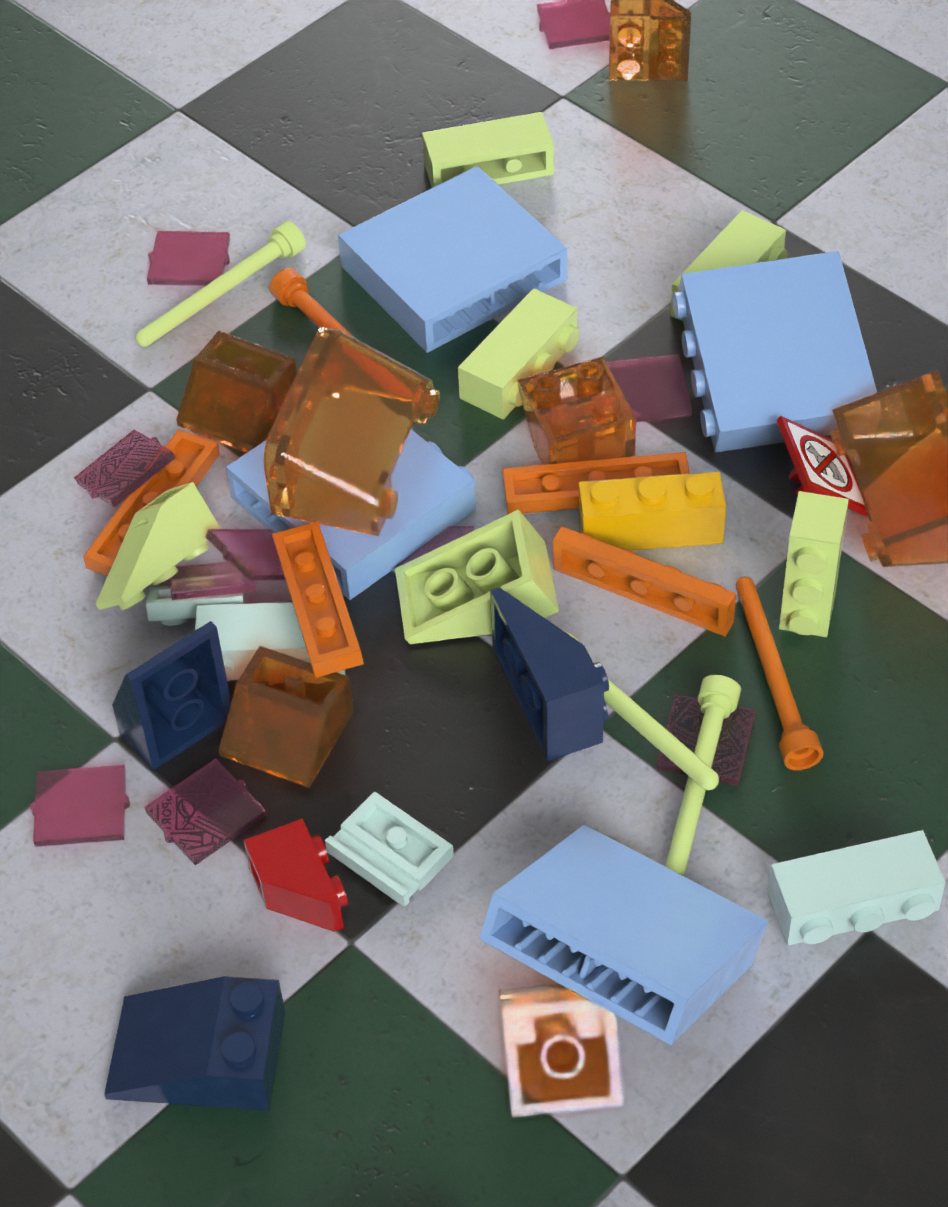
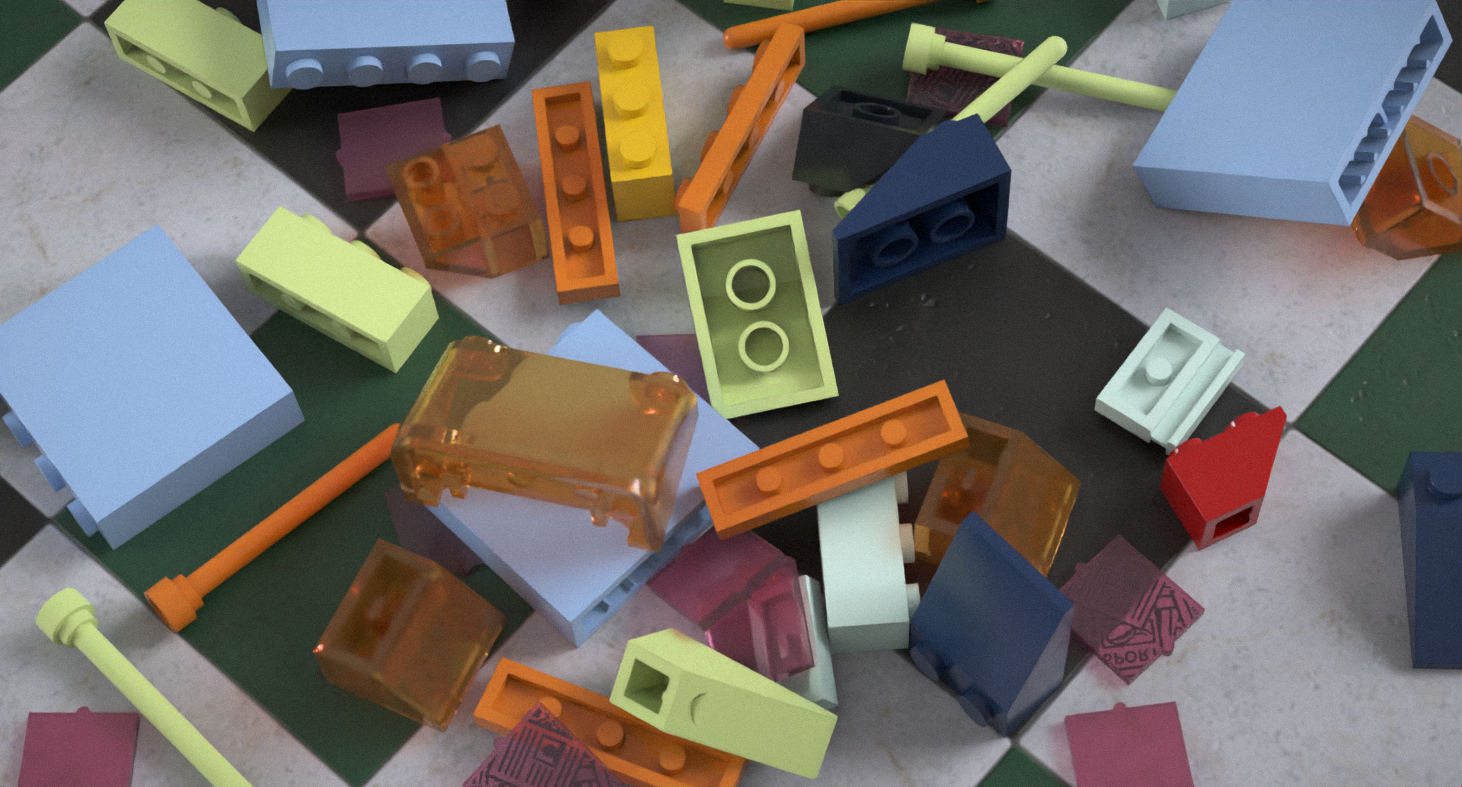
camera: 90 degrees left, 10 degrees up
(637, 650) = (855, 137): none -> black slope

